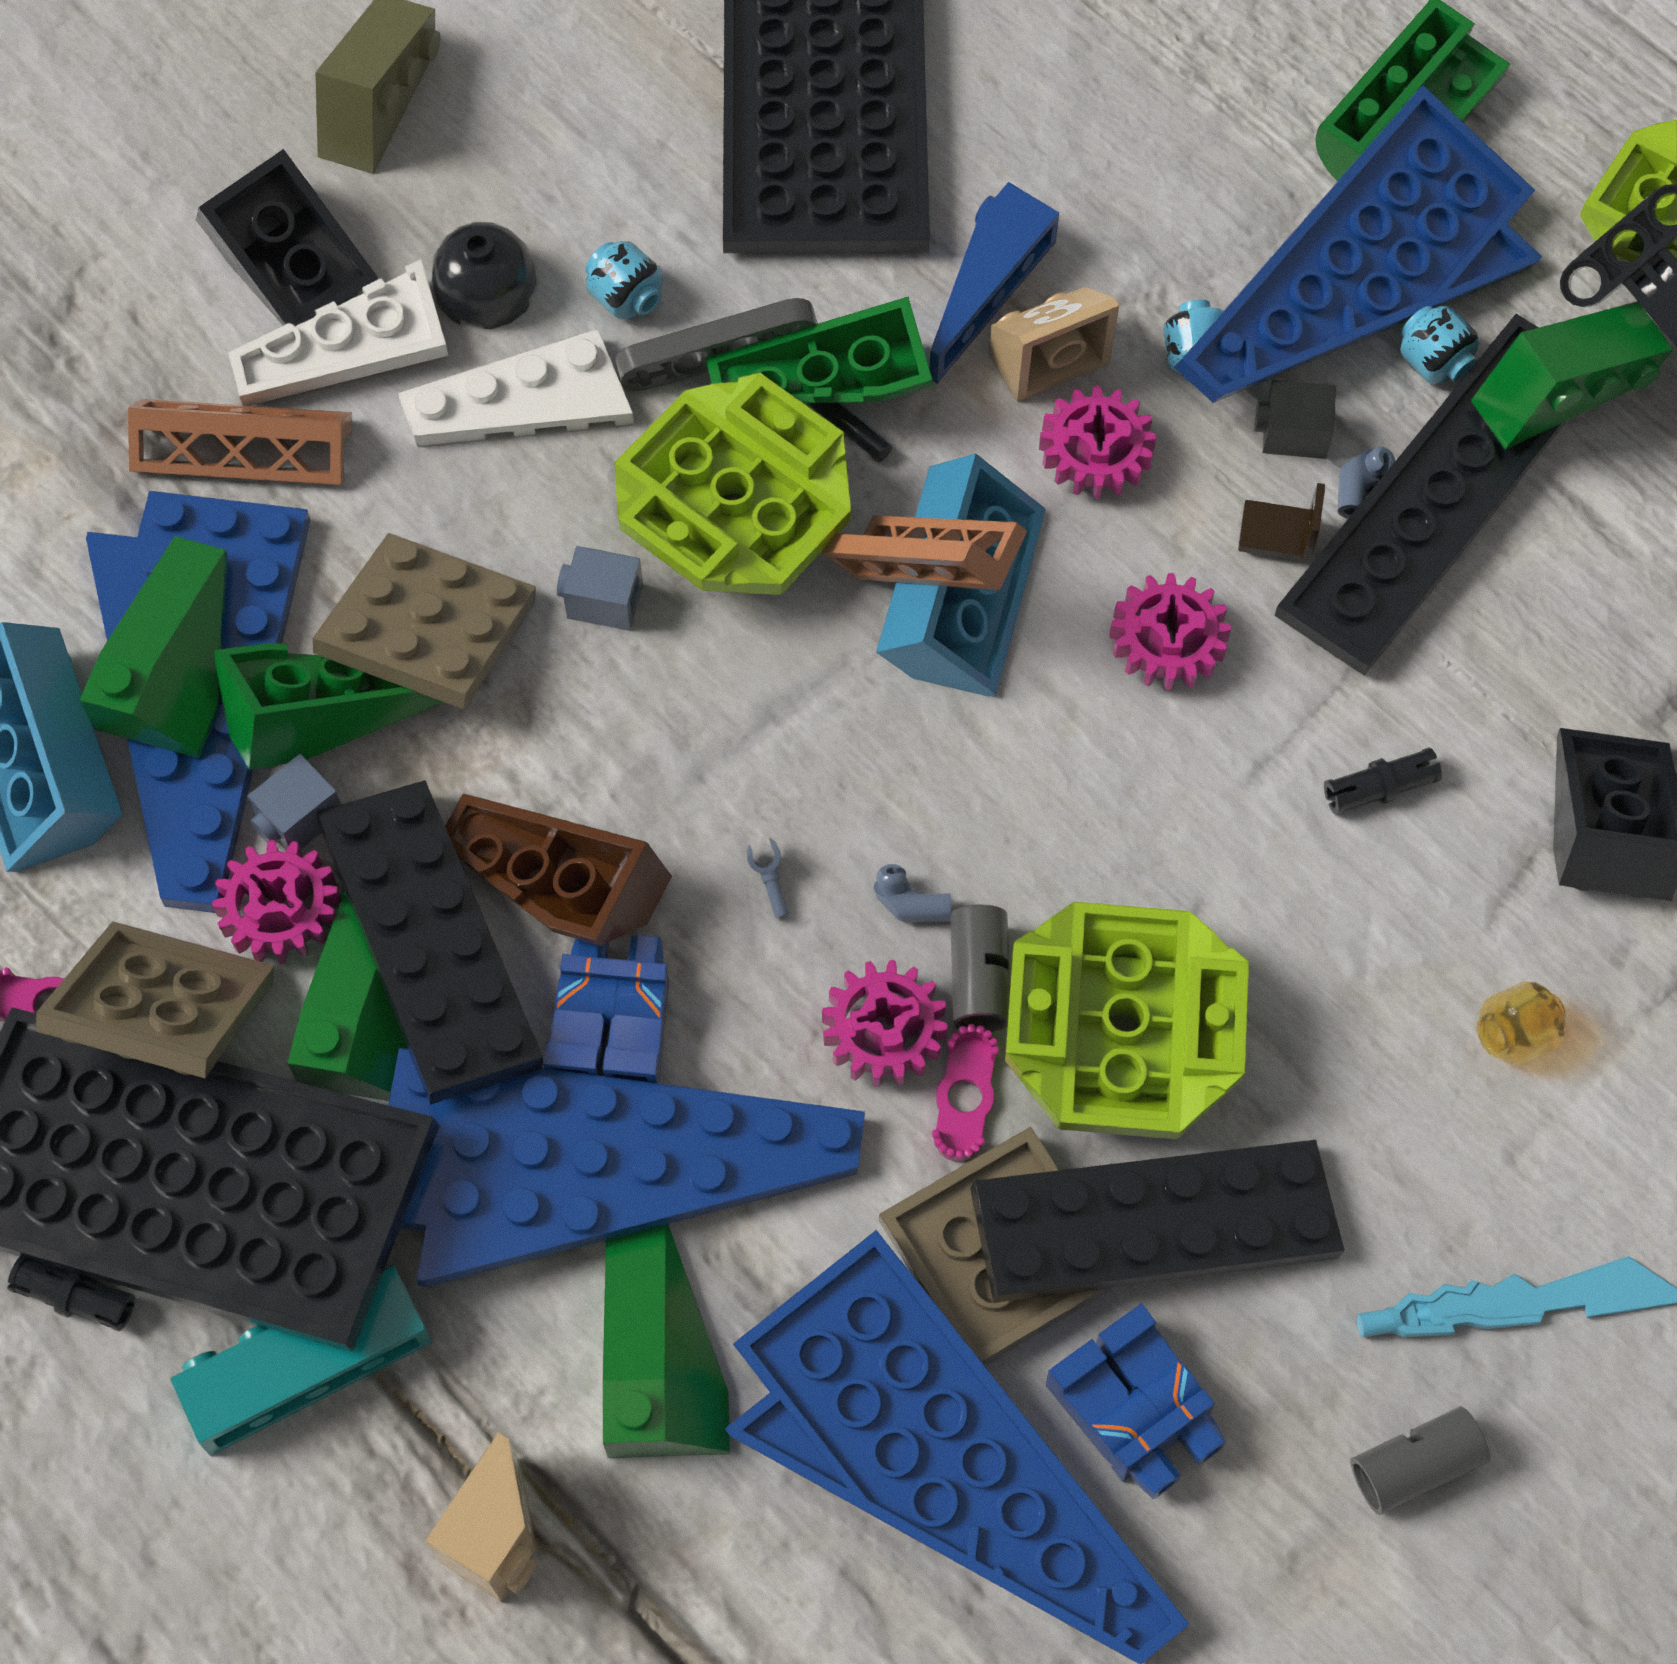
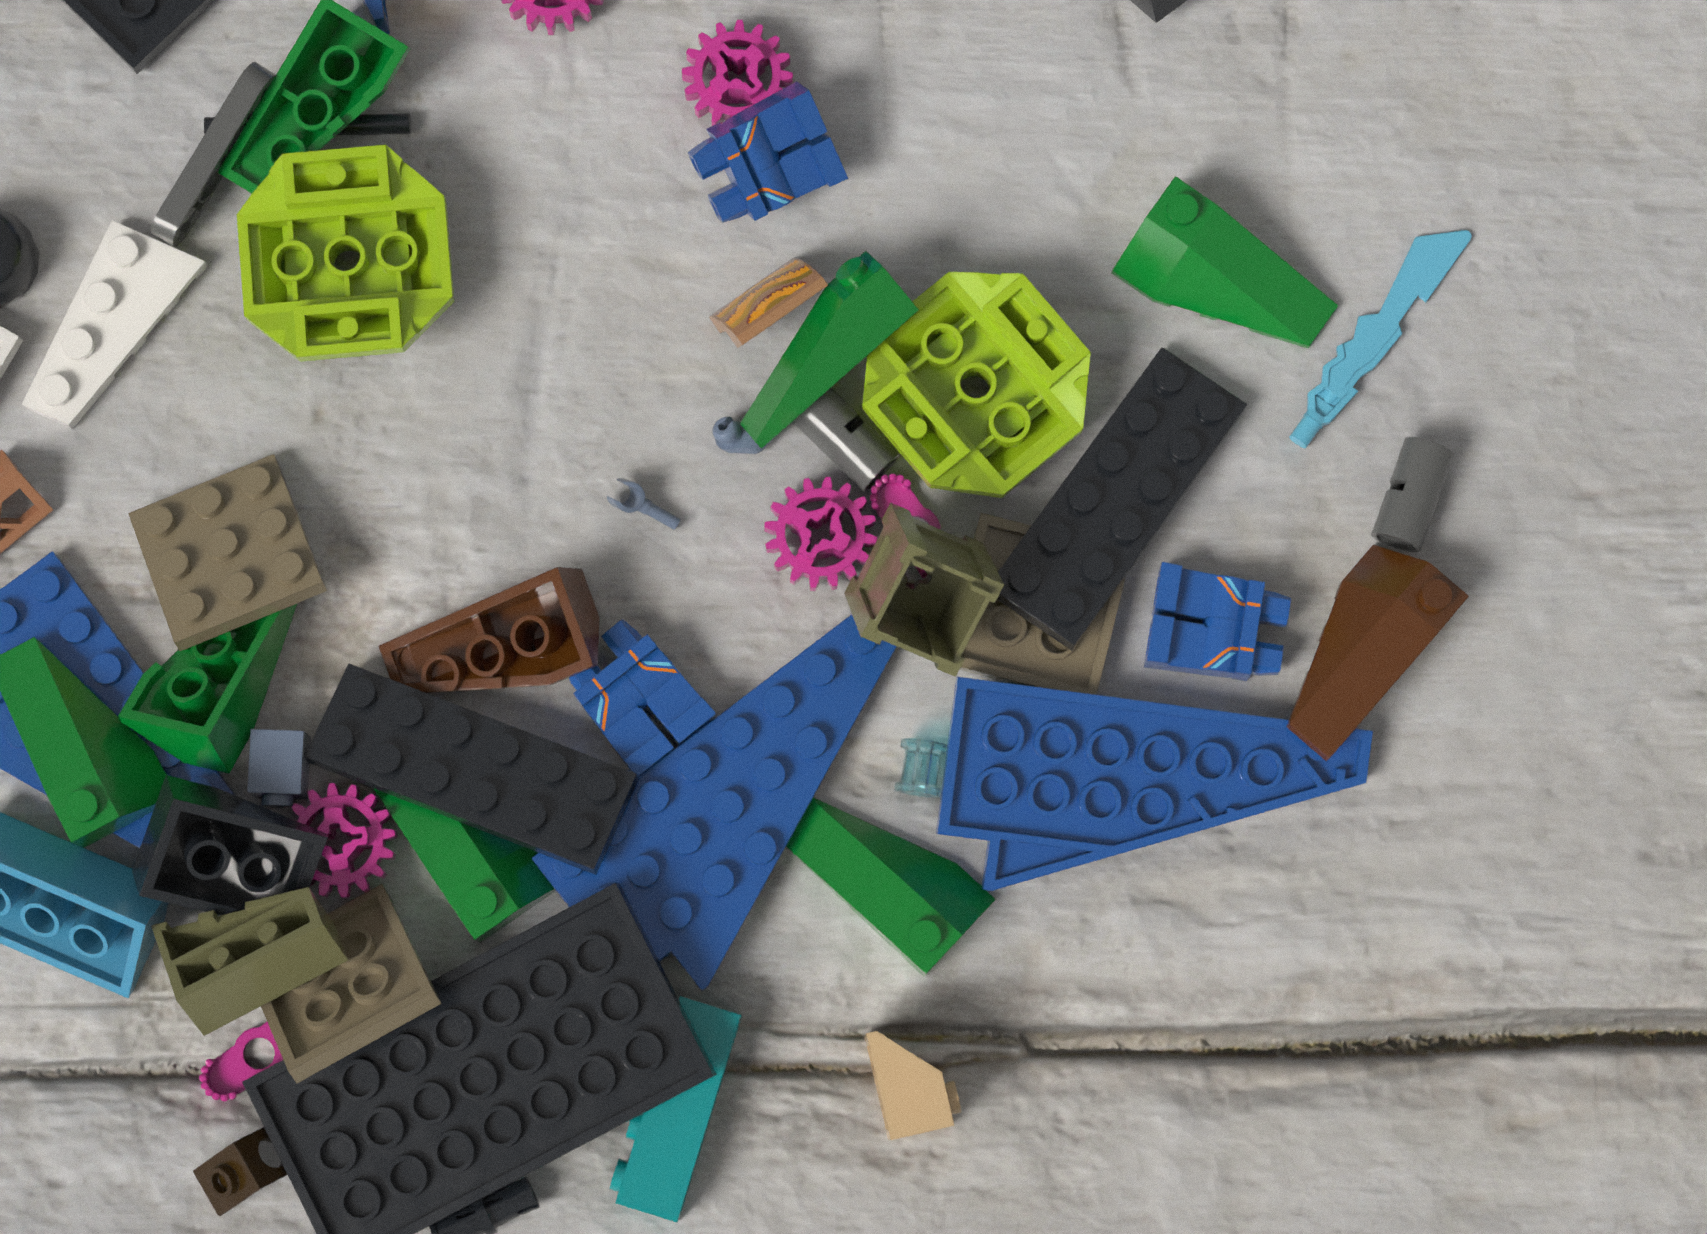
camera: 50 degrees left, 15 degrees up
(110, 909) = (247, 956): none -> olive wedge
(179, 824) = (221, 850): none -> black slope
(601, 587) = (320, 412): sand blue brick -> none
(624, 279) = (93, 165): medium azure head -> none
(756, 1285) = (930, 754): none -> clear light blue bush
(888, 1147) = (933, 613): none -> olive container
(929, 561) = (540, 186): nougat fence -> none
(958, 632) = (558, 168): dark azure slope -> none
(1021, 809) = (768, 301): none -> slope
(1067, 871) = (841, 329): none -> green wedge
(1116, 697) = (769, 155): none -> blue hips
(1267, 1544) = (1374, 632): none -> reddish brown wedge
(1382, 781) = (975, 53): black pin -> none
(1422, 1110) = (1212, 265): none -> green wedge
(1521, 1023) = (1218, 143): clear yellow head -> none

